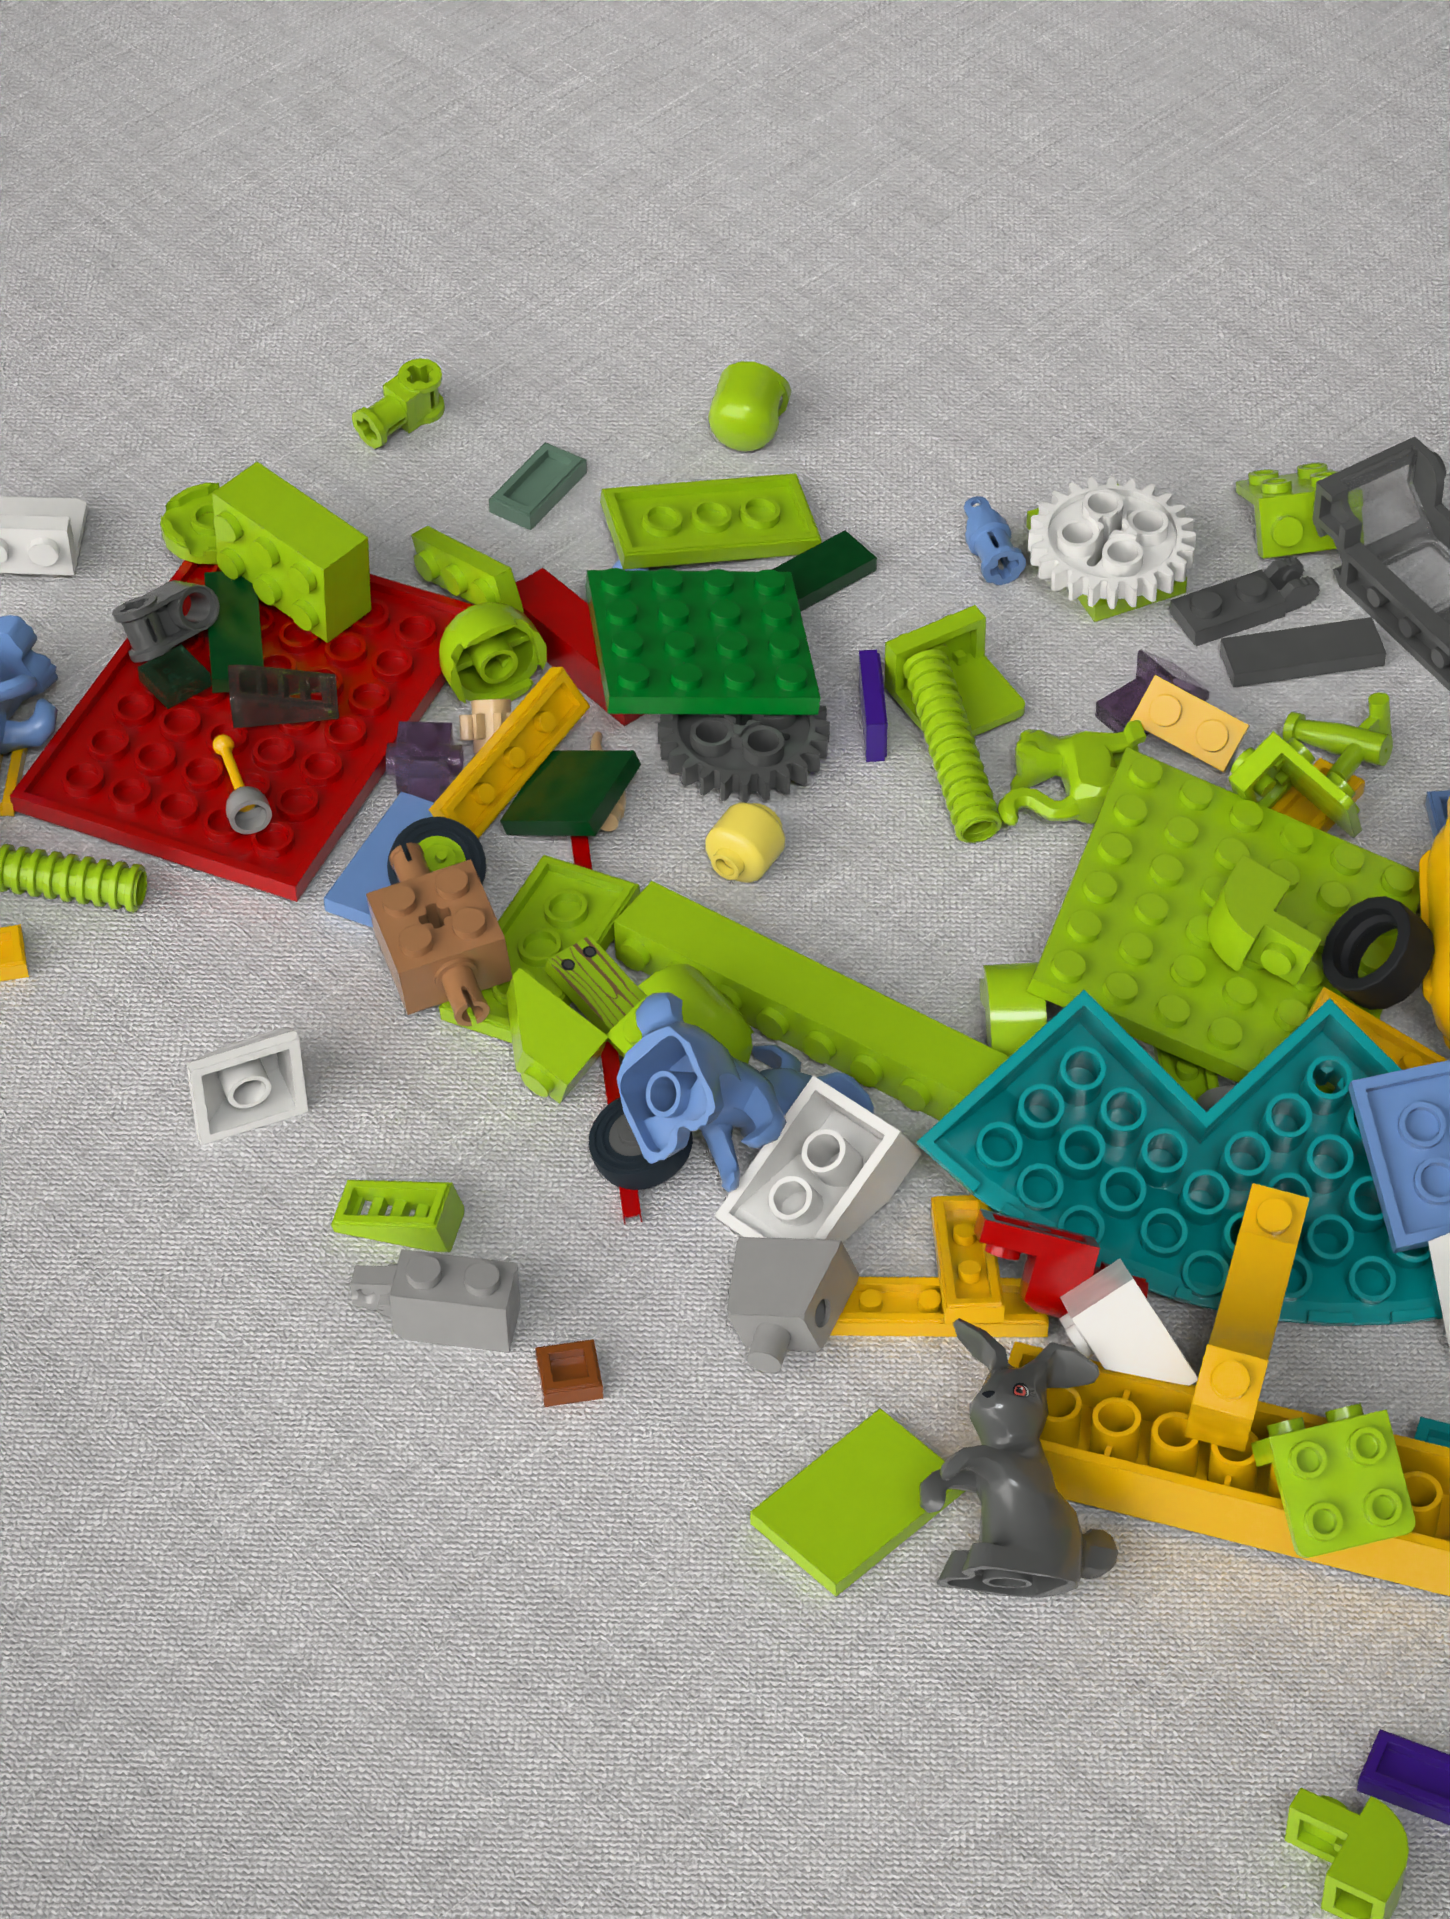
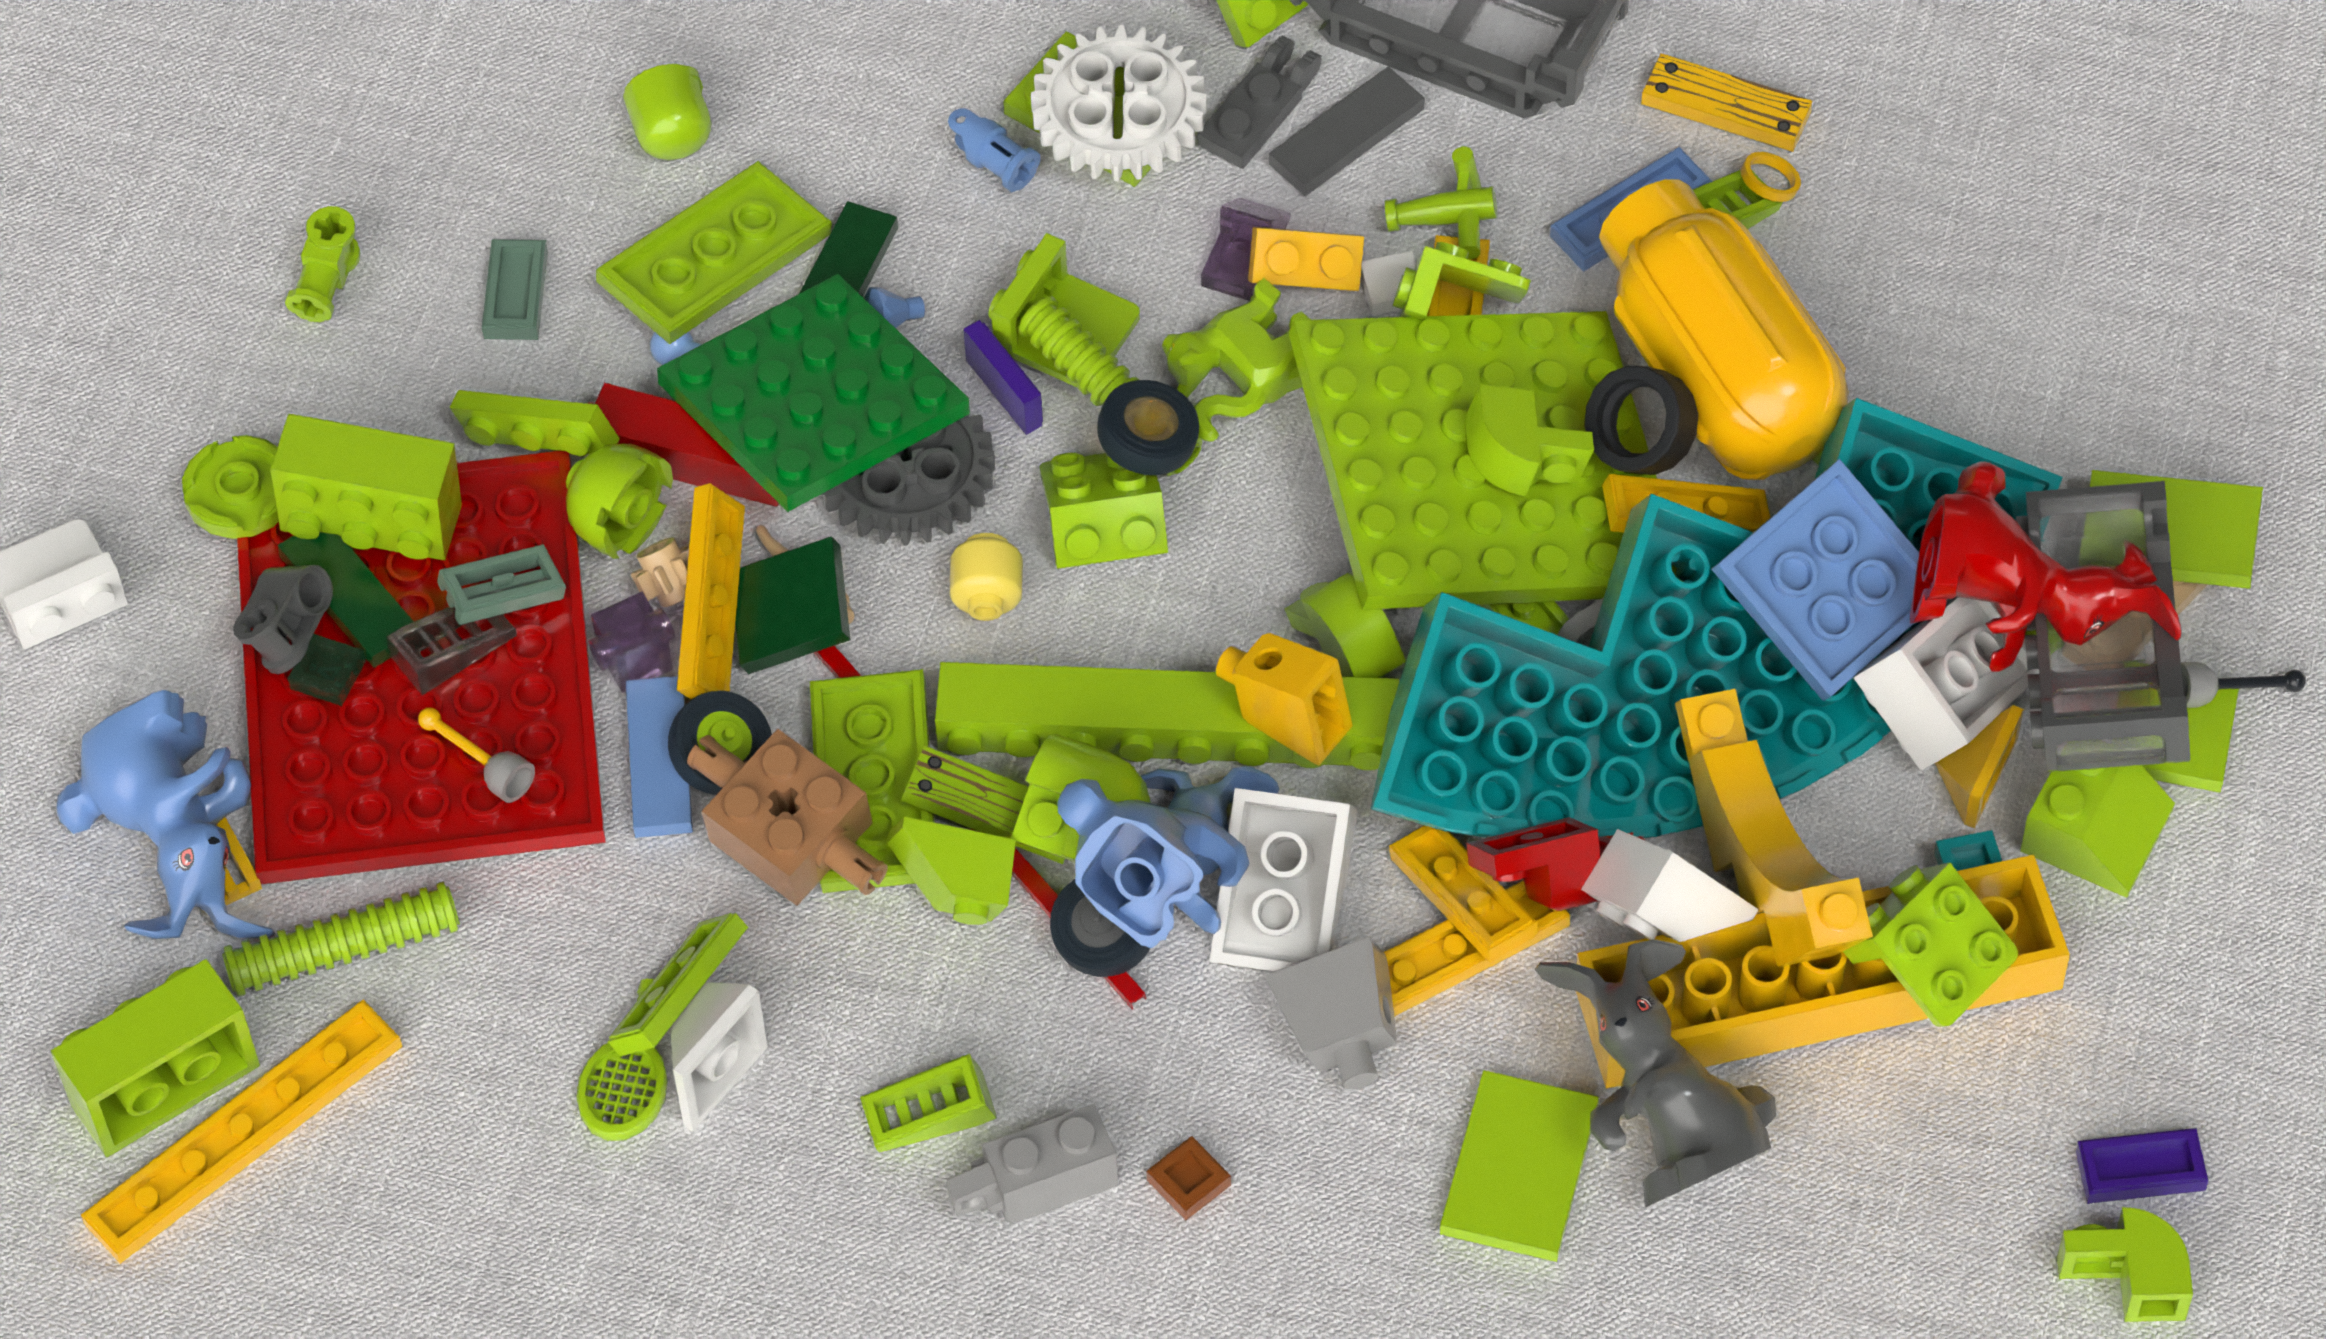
camera: 30 degrees left, 10 degrees up
(240, 1029) = (645, 1116): none -> lime piece
(261, 1020) = (677, 984): none -> lime tile
(354, 677) = (505, 591): none -> sand green tile
(821, 621) = (893, 307): none -> medium blue rock
(880, 836) = (1101, 510): none -> lime bracket
(910, 1007) = (1289, 694): none -> yellow torso
(950, 780) = (1148, 427): none -> black wheel

